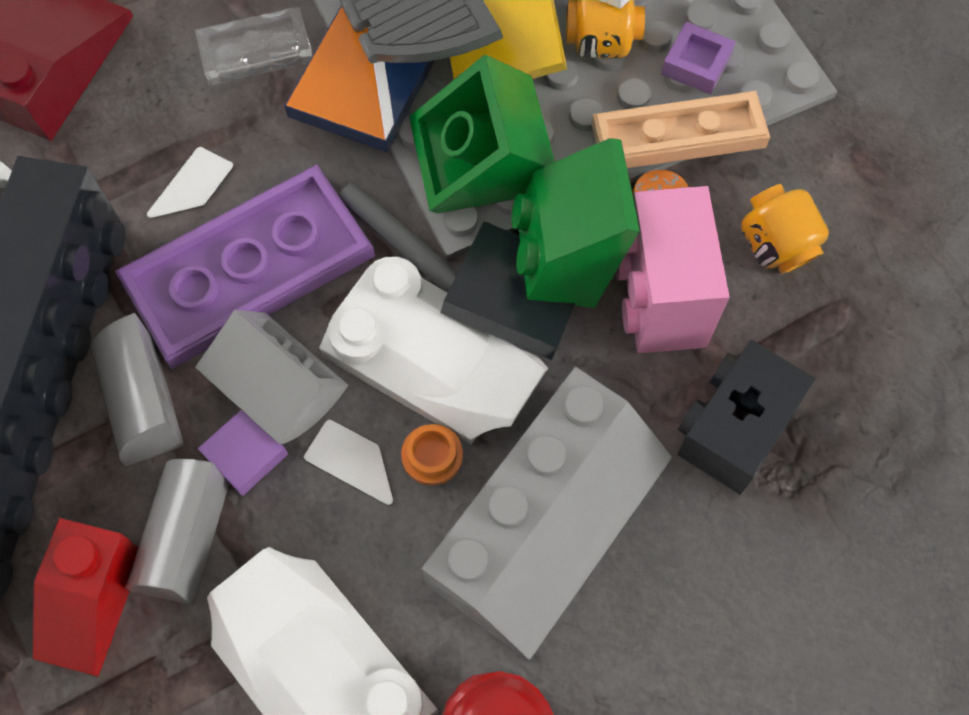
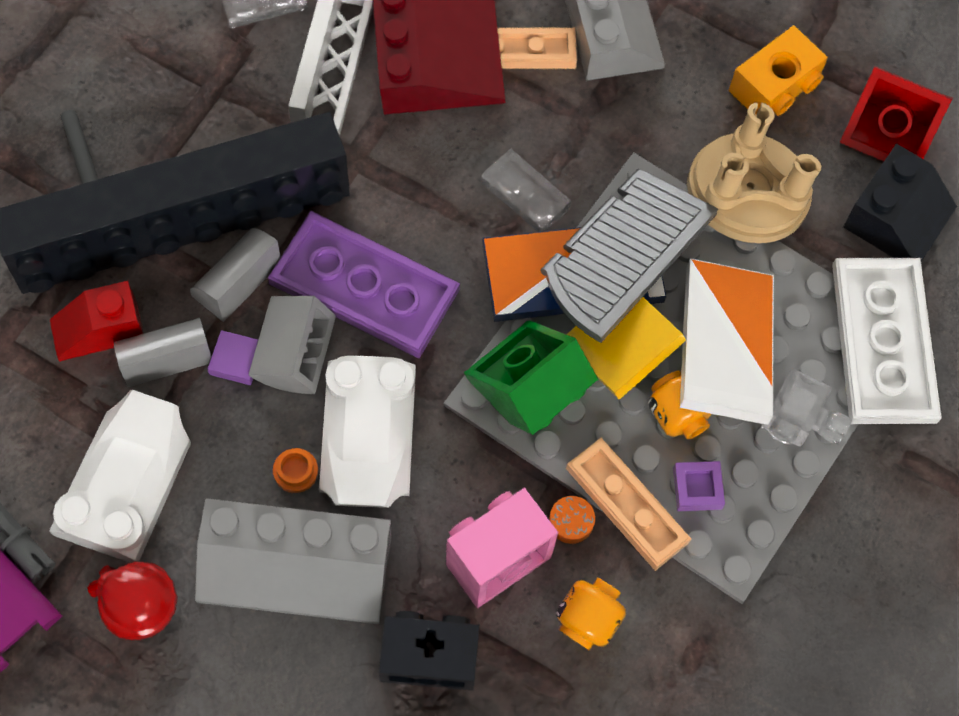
camera: 55 degrees right, 0 degrees up
(192, 183) = (405, 216): white sticker -> none
(350, 460) = (268, 424): white sticker -> none
(398, 236) = (437, 372): dark grey bar -> none
(495, 299) = (437, 458): black tile -> none
(575, 225) = (492, 465): green slope -> none

